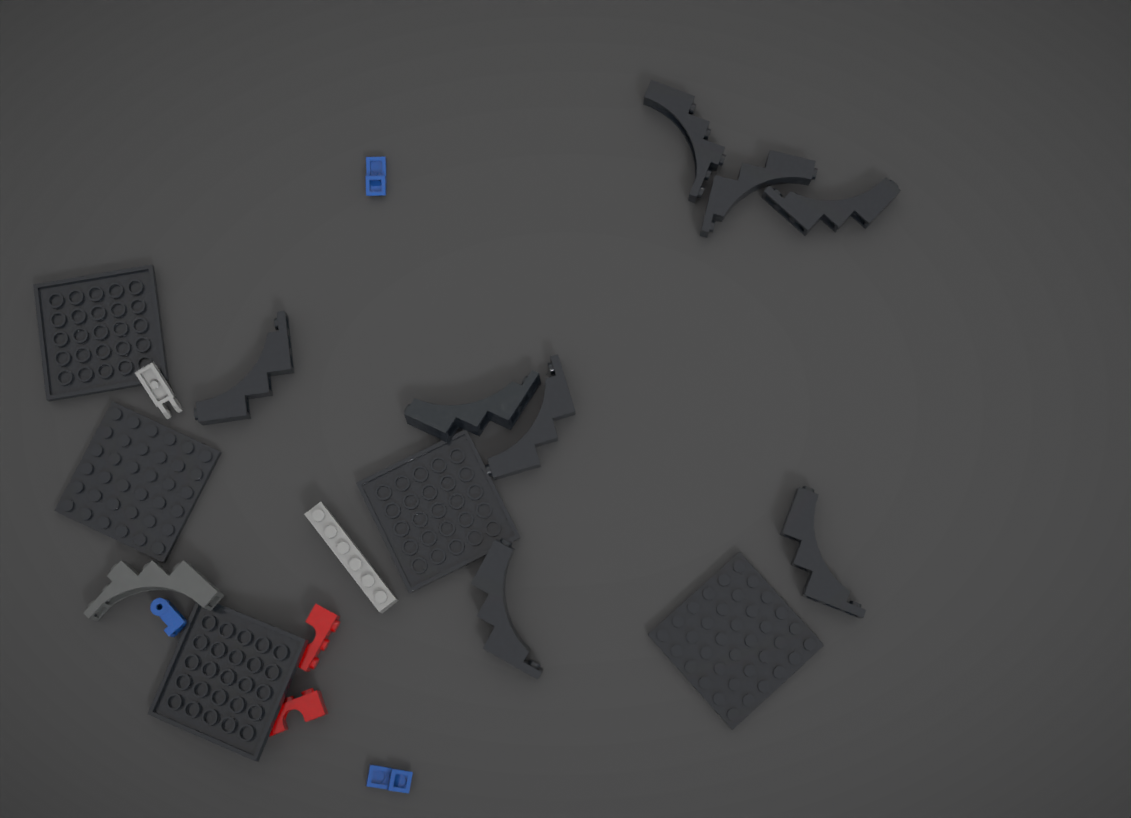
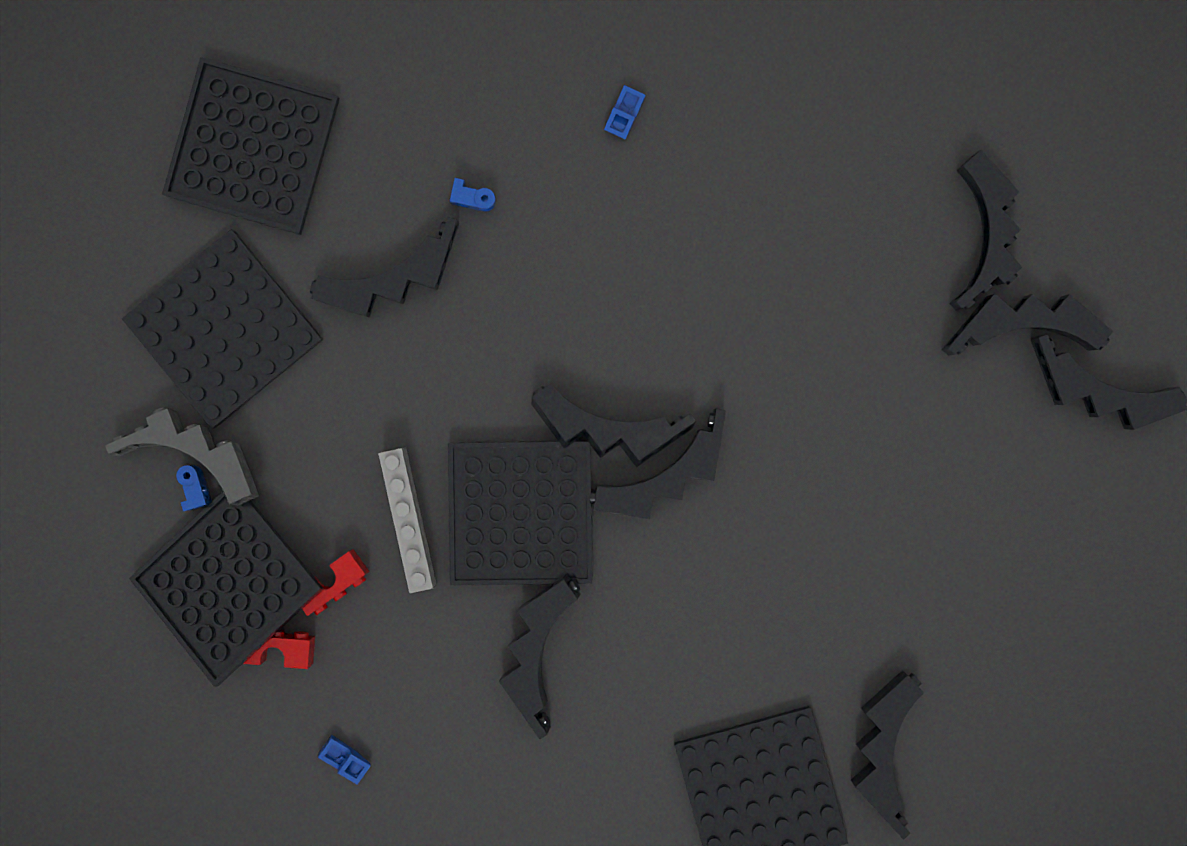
camera: 25 degrees right, 10 degrees up
(158, 389) = (284, 240): light grey hinge -> none
(289, 291) = (472, 198): none -> blue leg

